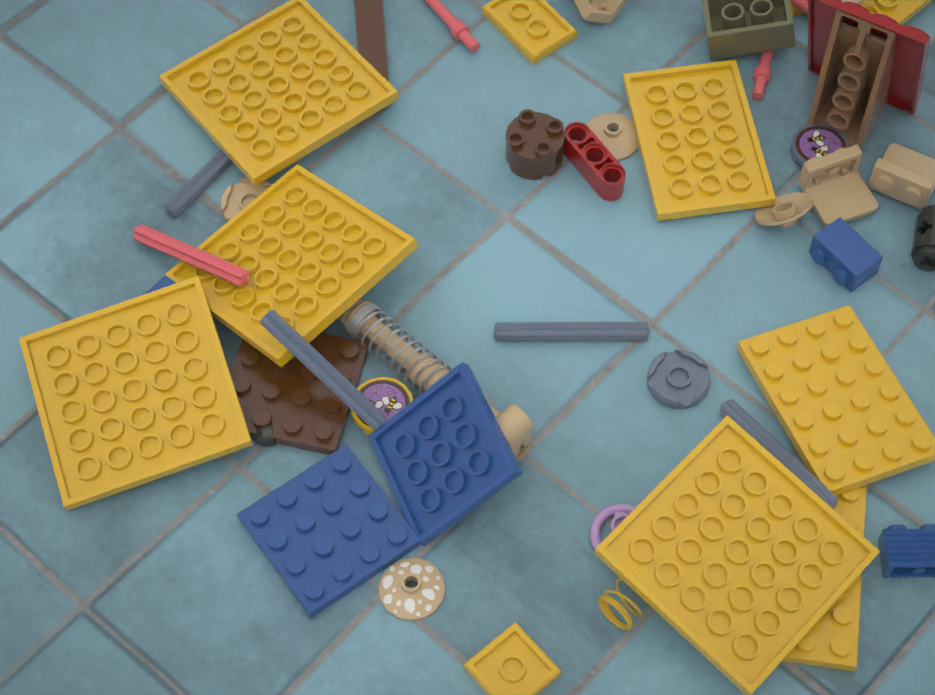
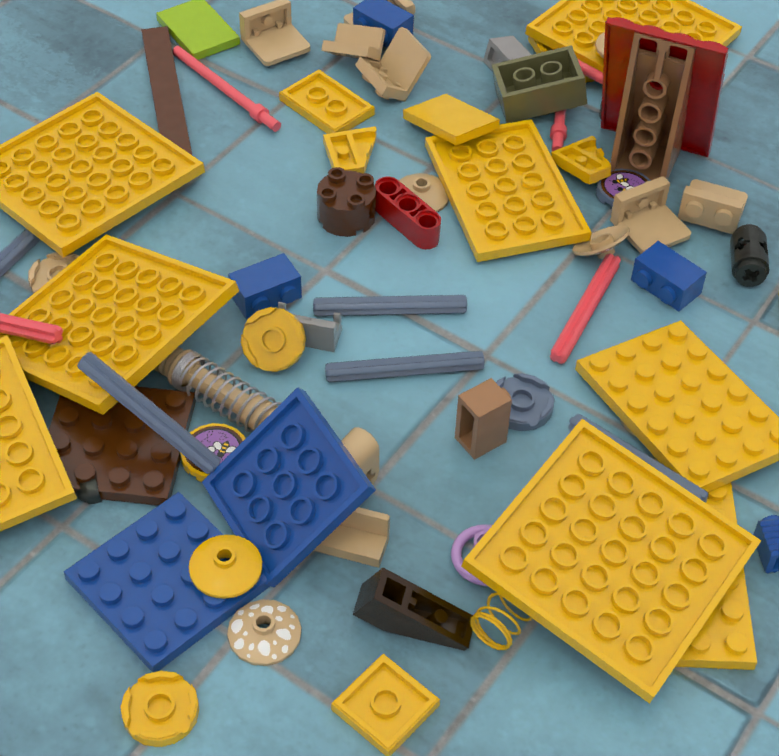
camera: 10 degrees left, 10 degrees down
(313, 652) = (160, 709): none -> yellow tile
(385, 537) = (228, 577): none -> yellow dish
(446, 233) = (266, 285): none -> blue brick
(447, 294) = (273, 339): none -> yellow tile
(480, 283) = (320, 333): none -> light grey hinge
(508, 508) = (359, 538): none -> tan panel
(546, 82) = (350, 148): none -> yellow wing
(546, 585) = (412, 611): none -> dark brown slope
(565, 263) = (390, 305): none -> sand blue axle
(637, 398) = (483, 418): none -> medium nougat piece
(652, 54) = (451, 119): none -> yellow tile
(757, 282) = (585, 309): none -> coral axle
(781, 112) = (583, 160): none -> yellow wing

